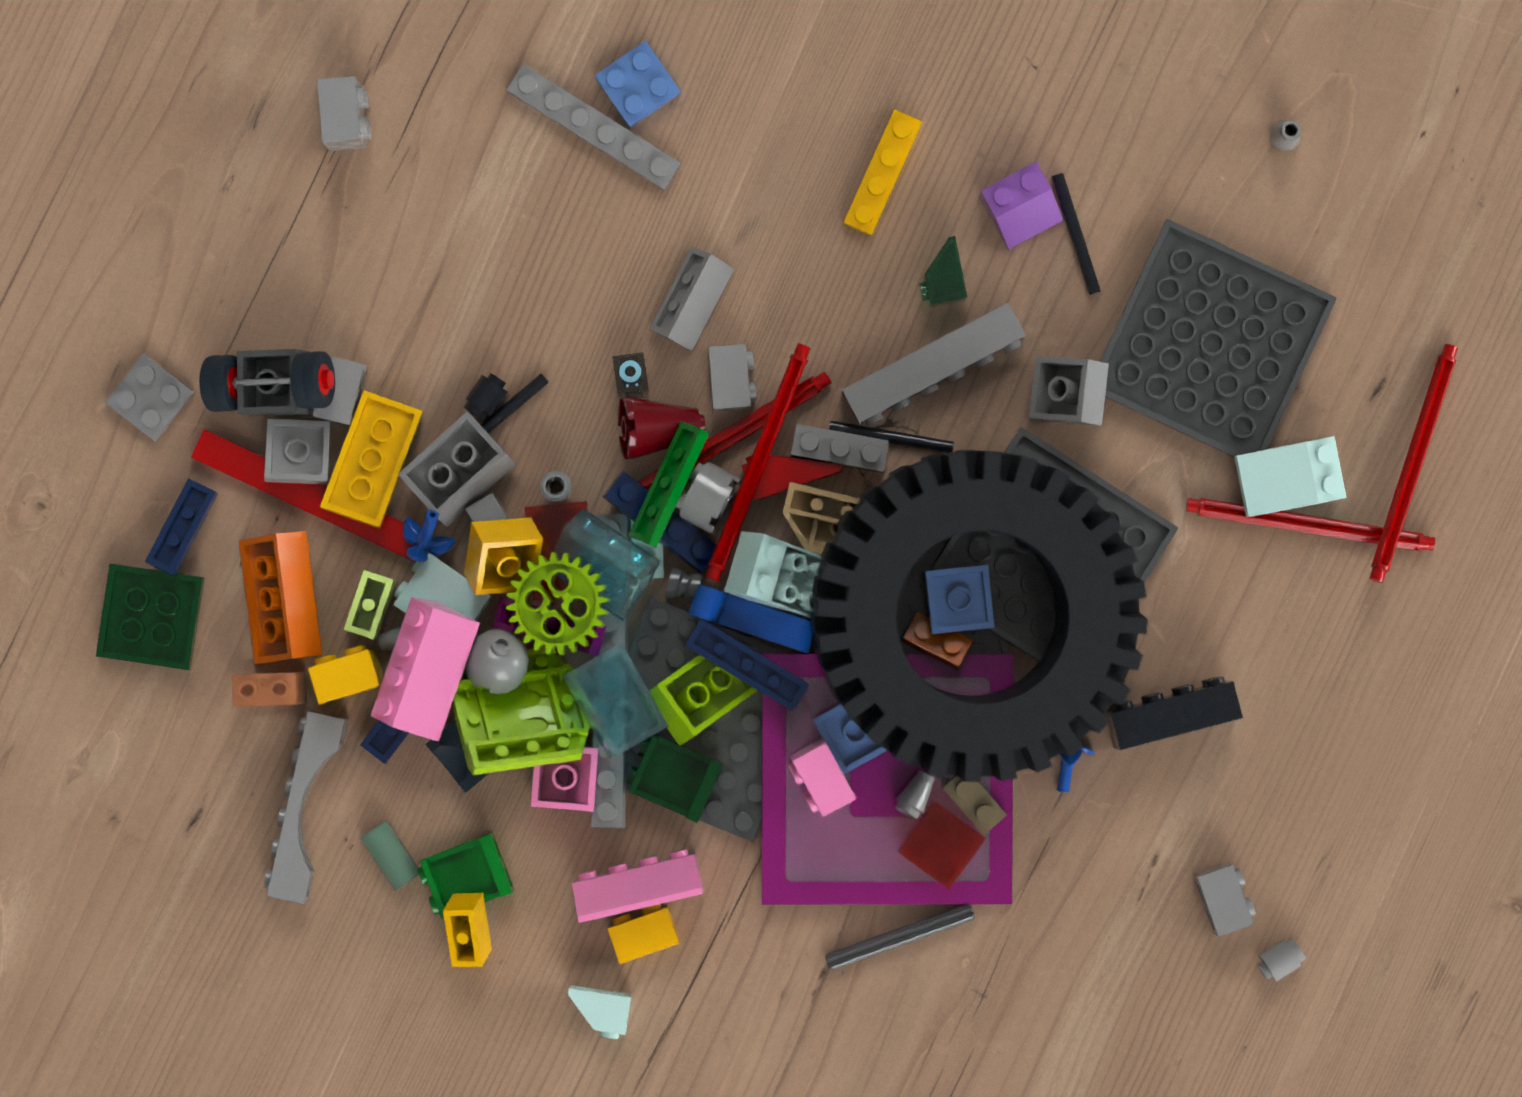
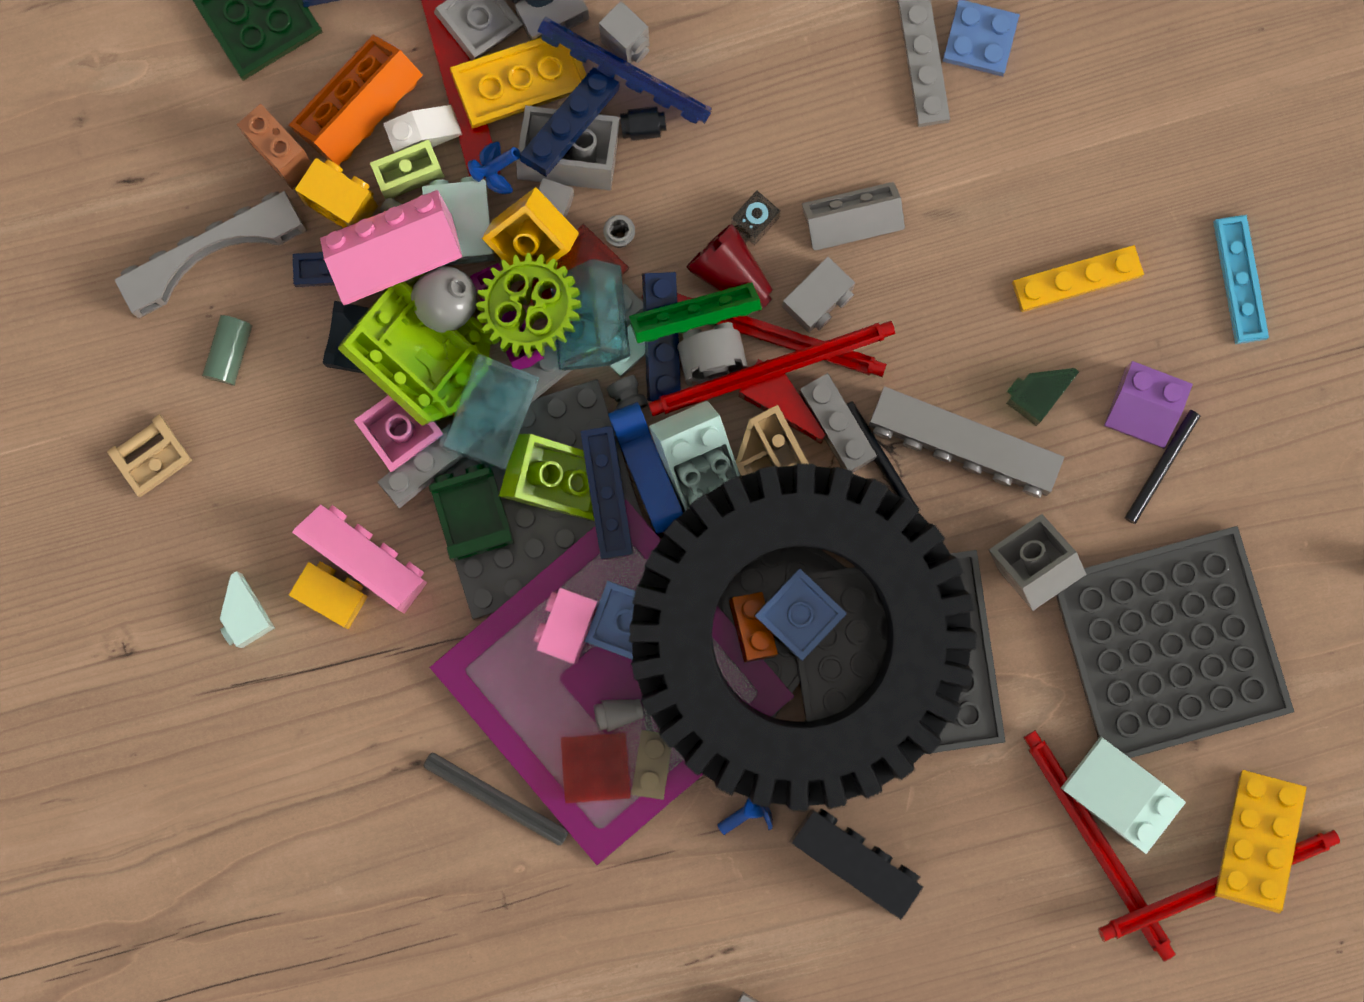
camera: 50 degrees right, 5 degrees down
(348, 565) = (416, 126): none -> white slope
(408, 352) = (625, 34): none -> light grey brick
(433, 980) = (154, 464): none -> tan plate
(440, 452) = (569, 122): none -> dark blue plate
(445, 373) = (613, 65): none -> clear blue plate
(466, 869) = (258, 420): green panel -> none
(467, 929) = (216, 454): yellow brick -> none
(514, 403) = (656, 151): black bar -> none
(987, 52) = (1241, 279): none -> medium azure tile
(1408, 405) = (1260, 841): none -> yellow plate

